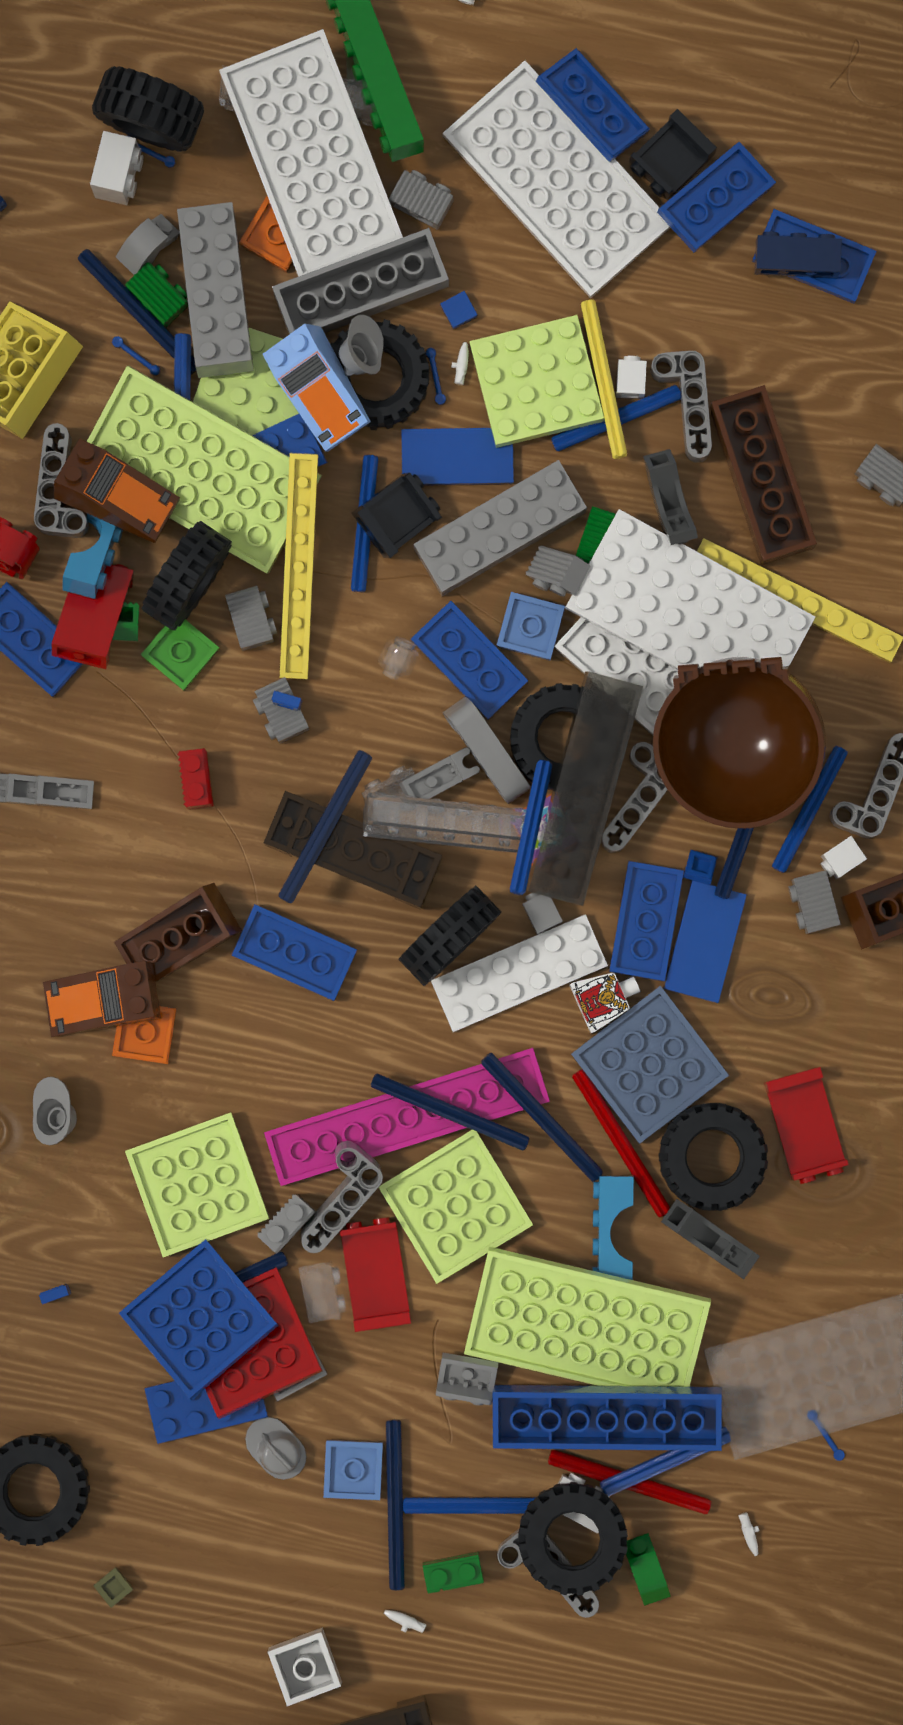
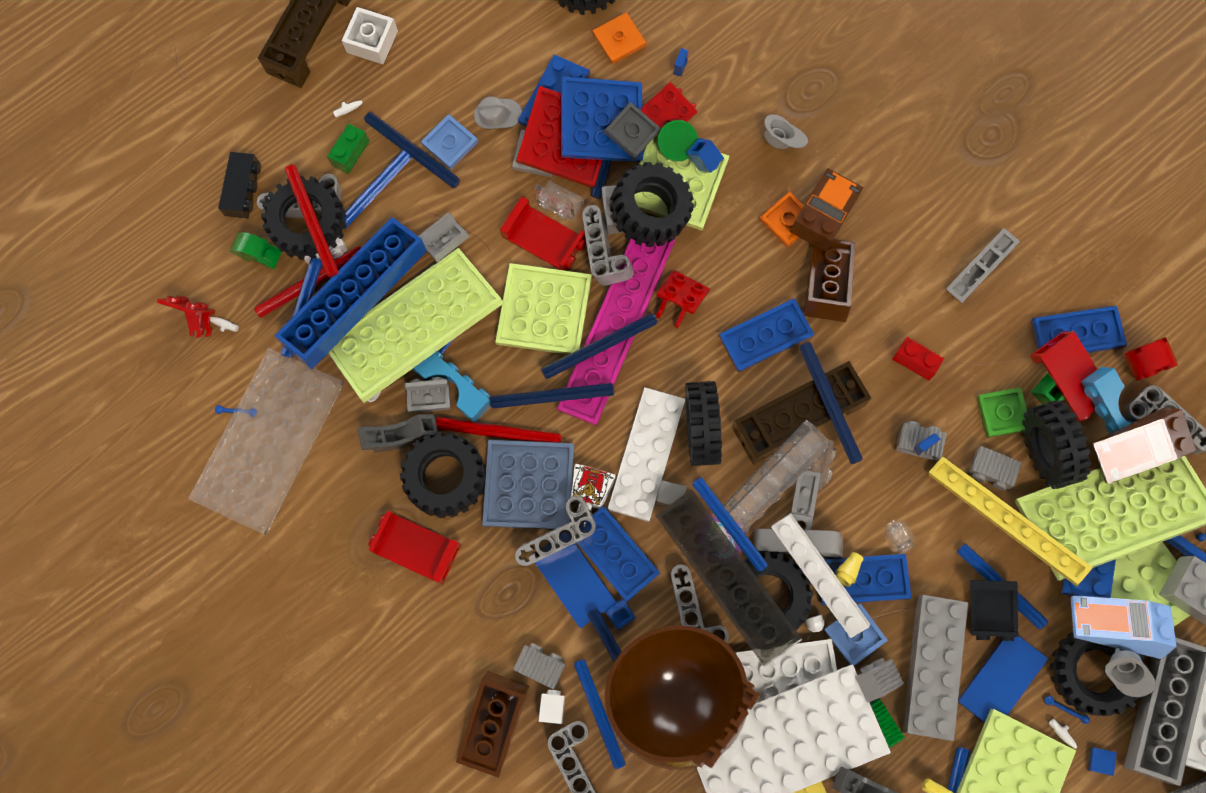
camera: 135 degrees right, 10 degrees down
(77, 1389) = (619, 38): none -> orange plate
(127, 1255) = (669, 106): none -> red plate
(152, 1172) = (705, 155): none -> blue brick
(157, 1216) = (676, 139): none -> green tile
(186, 1274) = (632, 130): none -> dark grey plate
(228, 1160) = (668, 187): none -> black tyre
(320, 1074) = (683, 292): none -> red plate
(474, 680) = (849, 569): none -> light yellow cone
(505, 703) = (820, 575): none -> white plate
(551, 673) = (815, 623): none -> white hinge
(573, 1519) = (311, 220): none -> red axle
(589, 1655) = (239, 185): none -> black brick
(646, 1245) = (428, 395): none -> light grey bracket
(681, 994) = (554, 535): none -> light grey beam
(762, 1571) = (196, 314): none -> red plate

